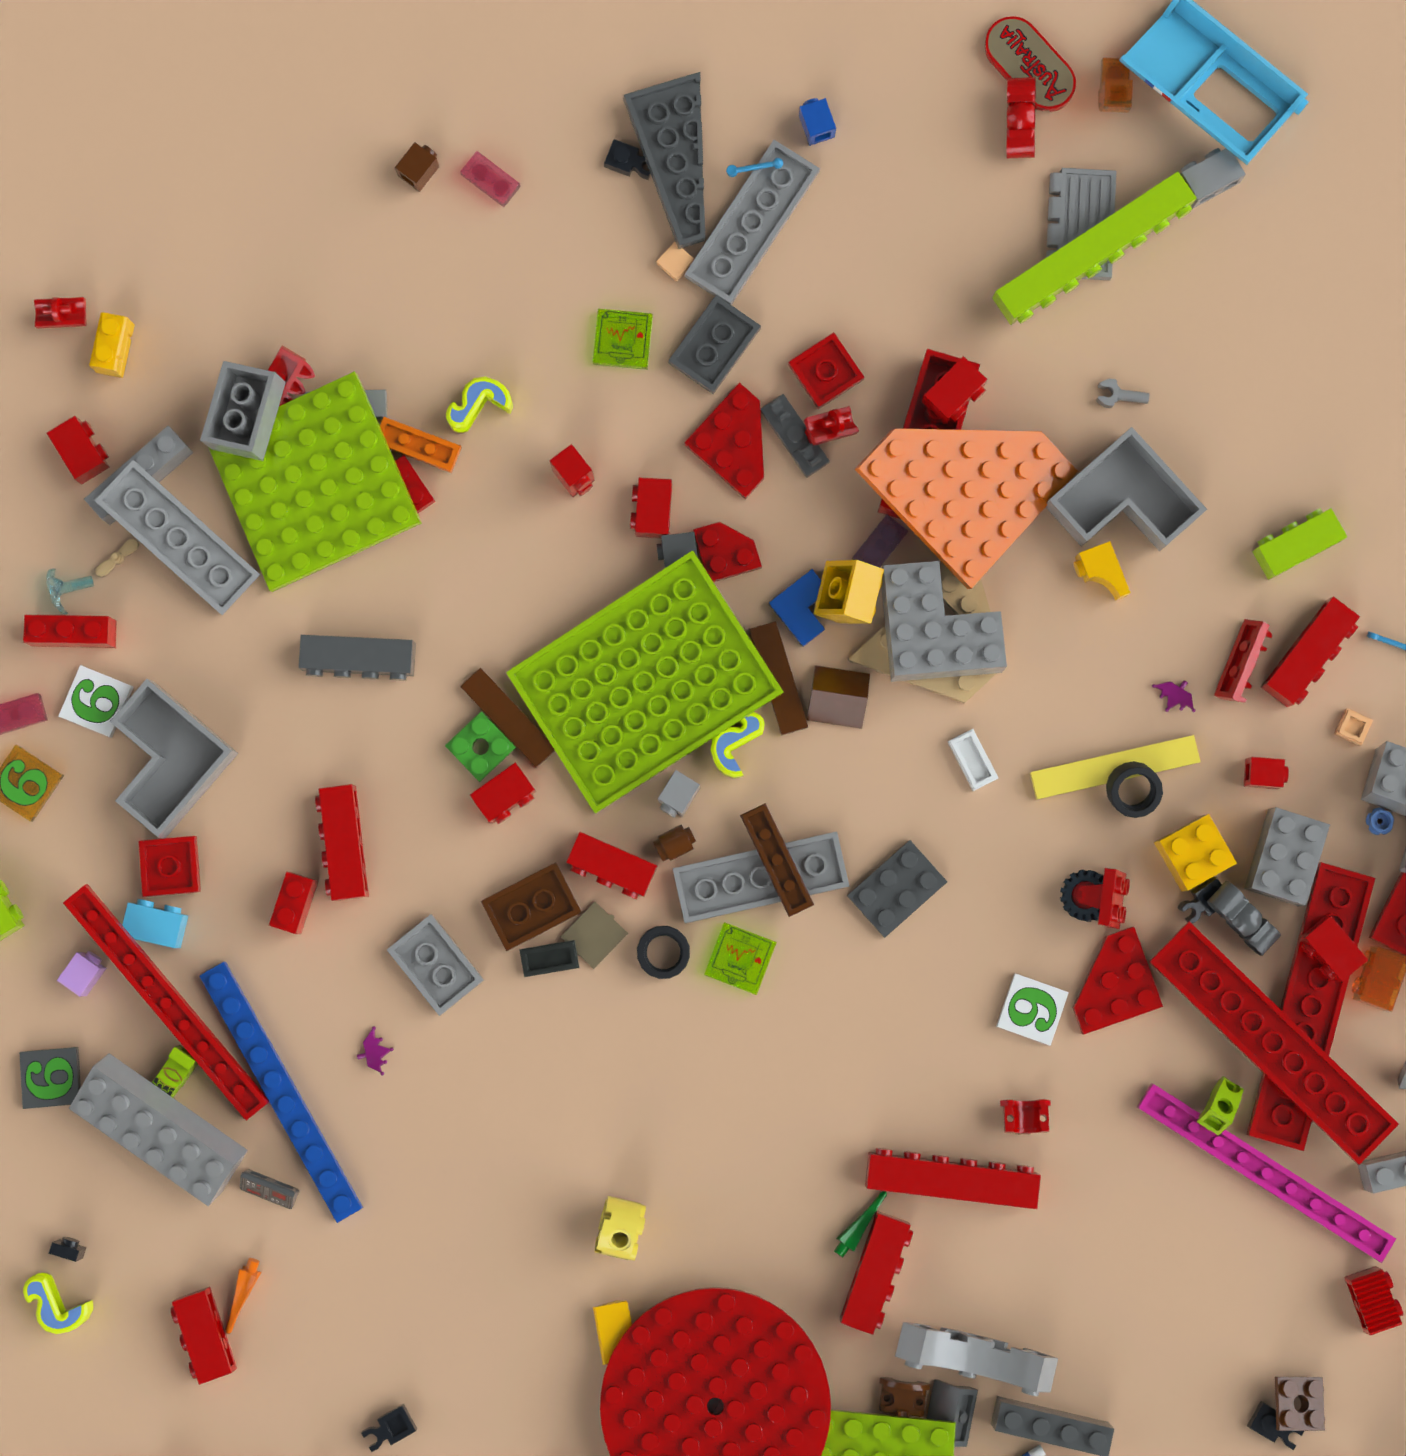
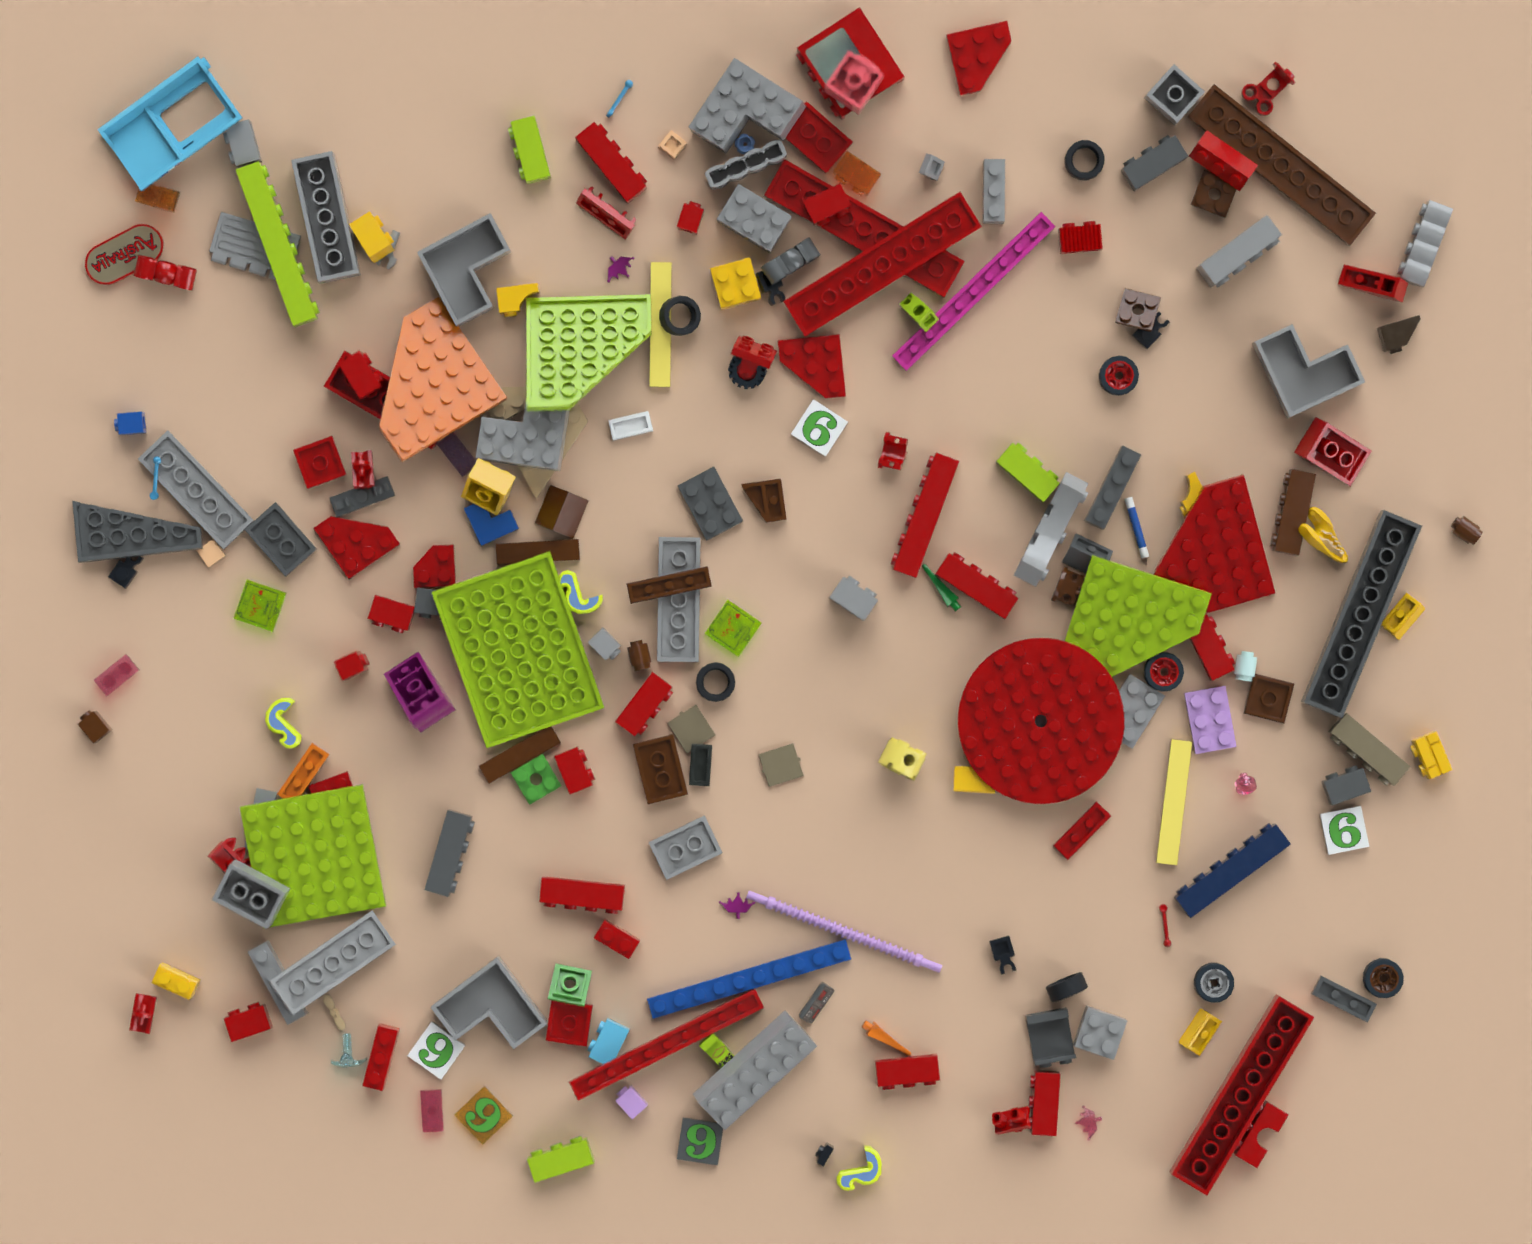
camera: 75 degrees left, 5 degrees up
(204, 864) = (575, 995): none -> bright green piece
(356, 1311) = (771, 902): none -> lavender hose
(556, 567) = (419, 692): none -> magenta brick
(574, 1065) = (781, 765): none -> dark tan piece
(819, 1111) = (853, 598): none -> light grey brick
(921, 963) = (767, 499): none -> reddish brown wing
(1044, 1305) = (1028, 471): none -> lime brick
(1066, 665) = (579, 343): none -> lime plate
(1134, 366) = (371, 236): none -> yellow brick
(1144, 302) = (326, 217): none -> light grey brick
(1205, 1412) = (1129, 377): none -> wheel
(1359, 835) = (751, 162): none -> light grey brick

